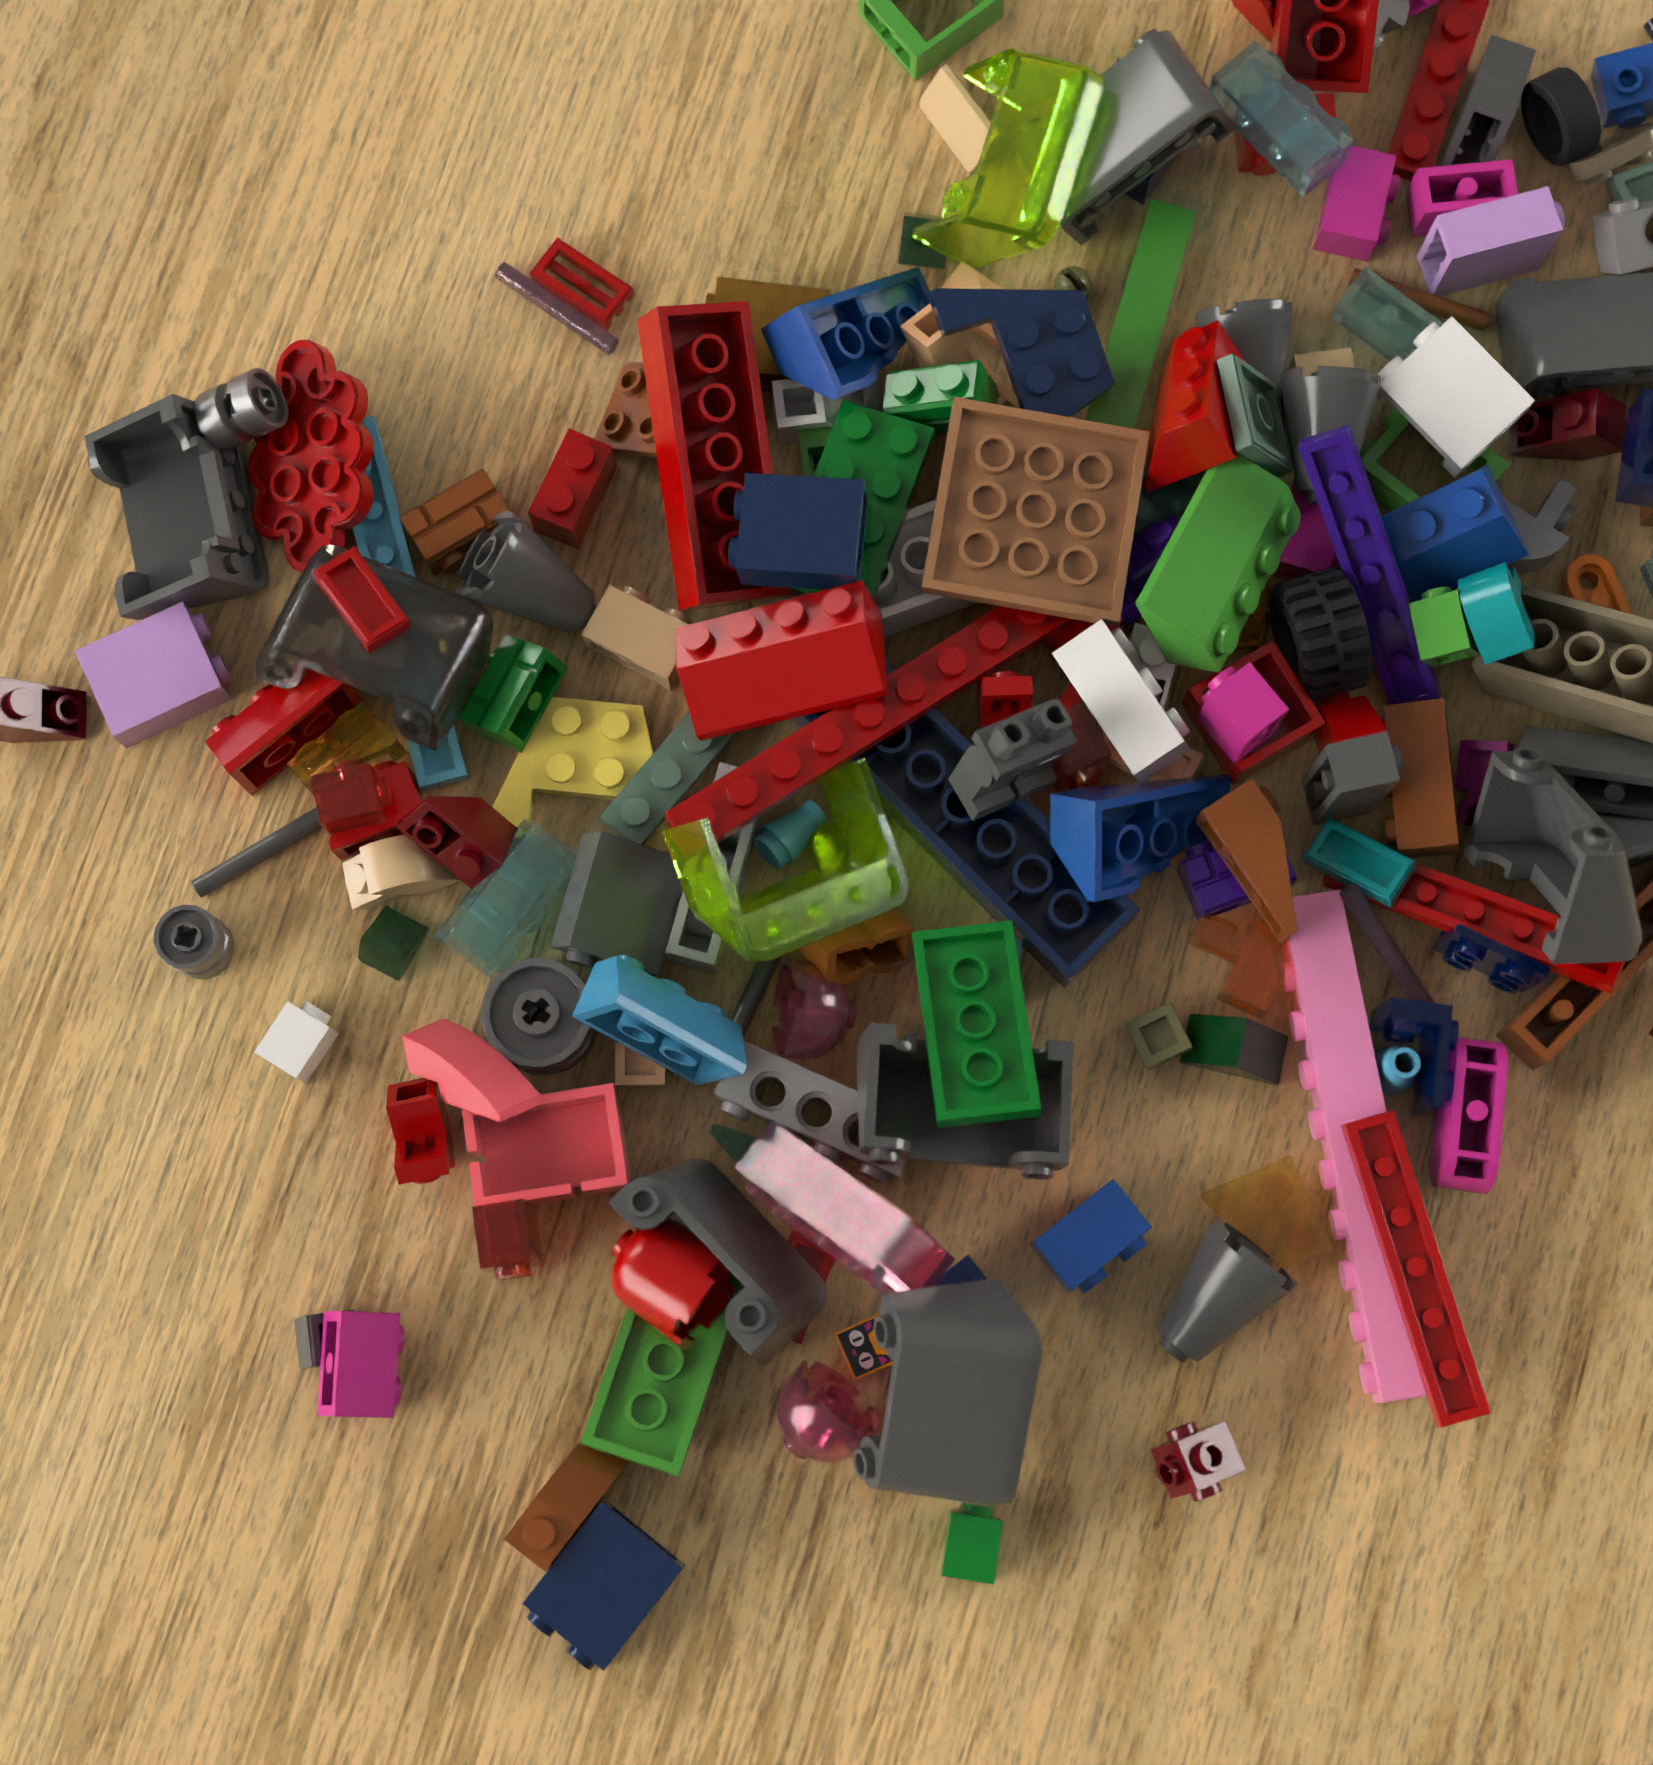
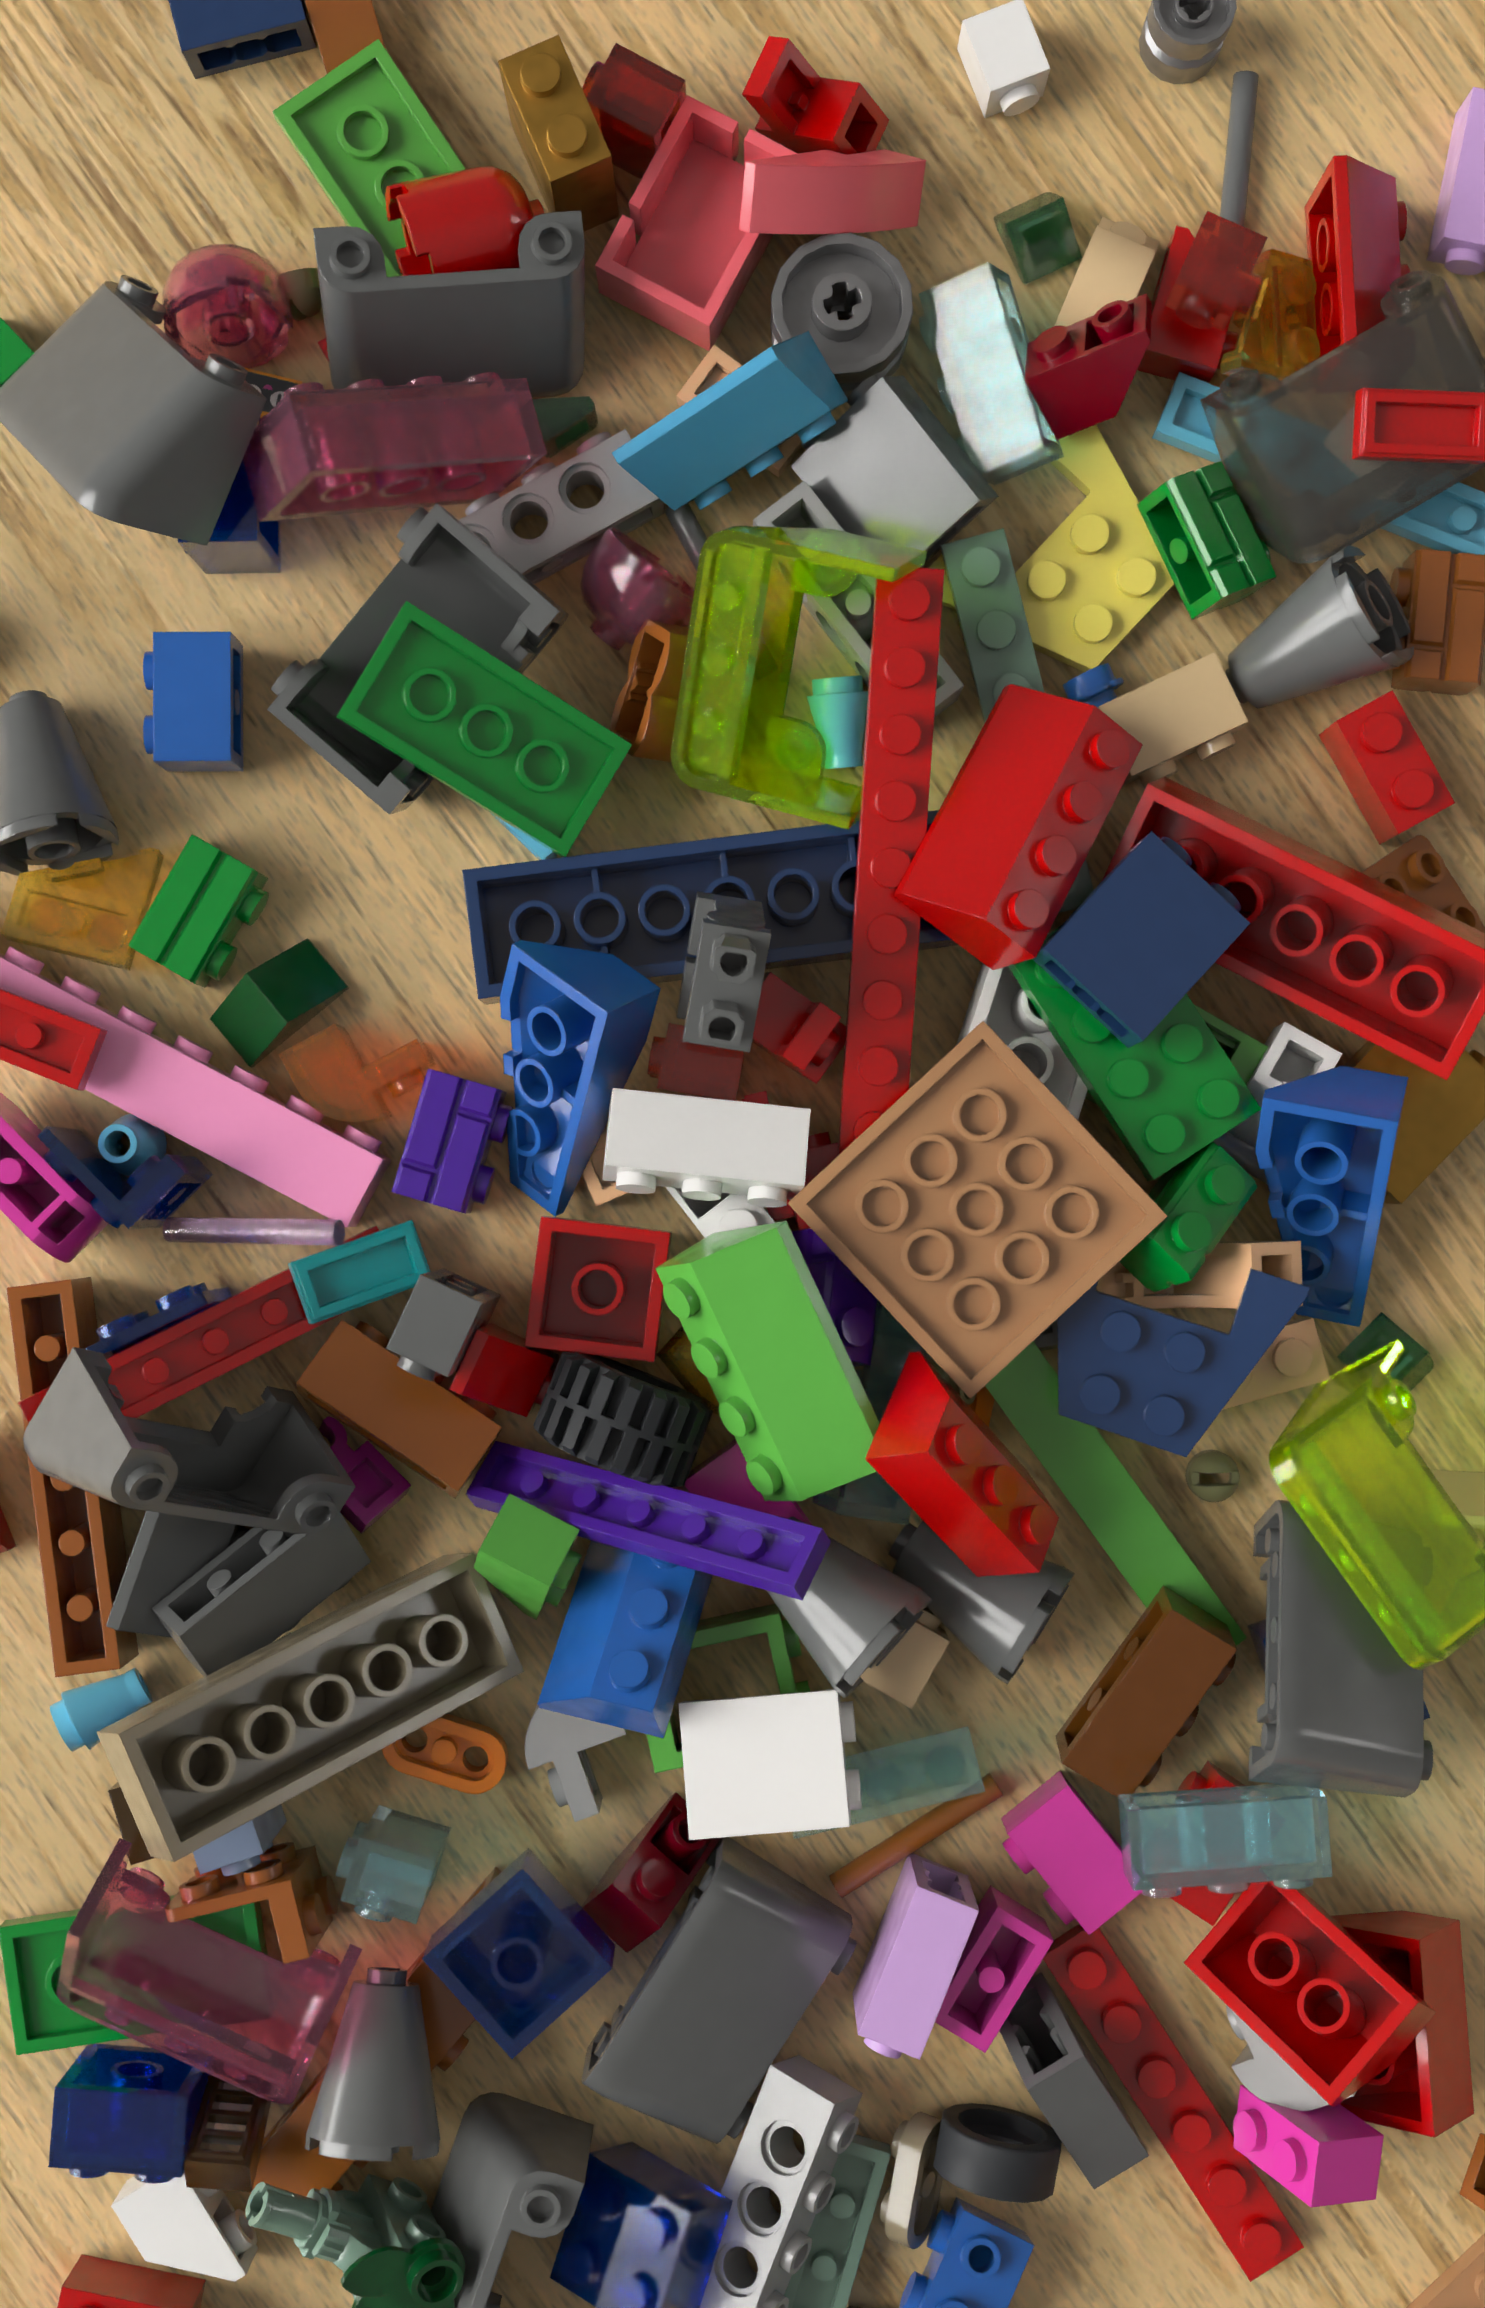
camera: 125 degrees right, 10 degrees up
(560, 1271) = (559, 133): none -> pearl gold brick
(655, 696) = (1094, 686): none -> blue plate
(773, 1377) = (303, 292): none -> olive hinge
(1159, 1036) = (345, 932): olive plate -> none
(1219, 1135) = (201, 913): none -> green brick
(1232, 226) = (1146, 1694): none -> reddish brown brick
(1240, 711) = (592, 1250): dark pink brick -> none
(1252, 845) = (454, 1165): dark orange slope -> none
(1255, 416) = (902, 1526): sand green tile -> none
(1496, 612) = (498, 1612): teal brick -> none

